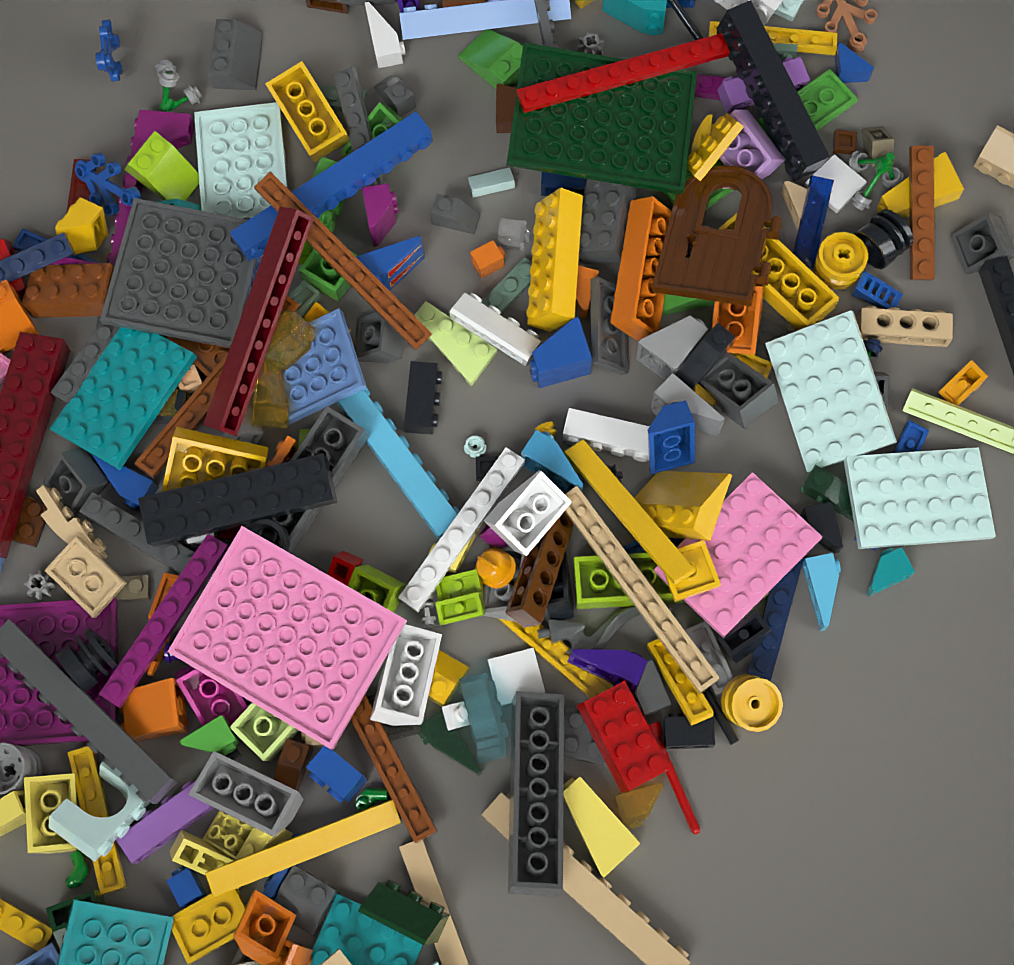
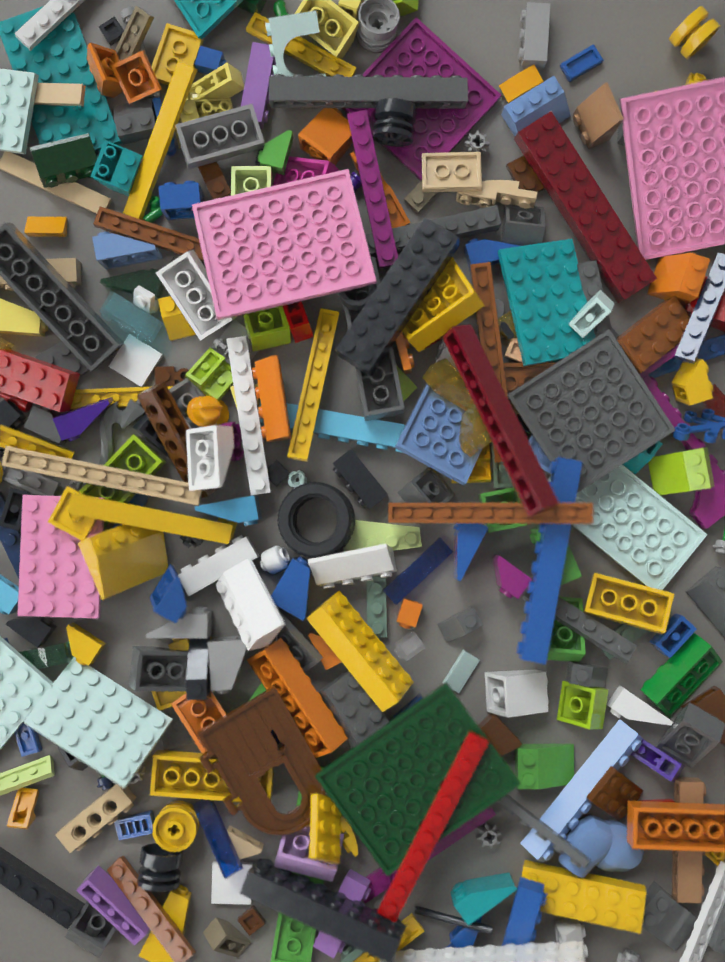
camera: 130 degrees right, 15 degrees up
(99, 346) = (592, 313): none -> light aqua slope
(291, 56) = (676, 634): none -> blue brick
(323, 33) = (681, 675): none -> green slope
(364, 862) = (116, 167): none -> teal slope
(381, 504) = (313, 385): none -> yellow plate
(422, 74) = (582, 705): none -> lime slope
(427, 517) = (273, 399): none -> orange slope
(437, 784) = (120, 251): none -> medium blue slope
(447, 284) = (417, 571): none -> clear blue tile
(463, 126) = (516, 692): none -> white slope
(481, 879) = (46, 227): none -> light orange slope
(482, 361) = (288, 519): none -> black tyre
(501, 637) = (168, 375): none -> reddish brown plate
(547, 427) = (261, 530): yellow bush -> none
(557, 396) = (274, 559): none -> white head
(610, 369) = (250, 605): none -> white slope
(788, 470) = (84, 644): none -> yellow slope
(883, 165) = (199, 921): plant -> none
(950, 244) = (111, 902): none -> medium lavender brick

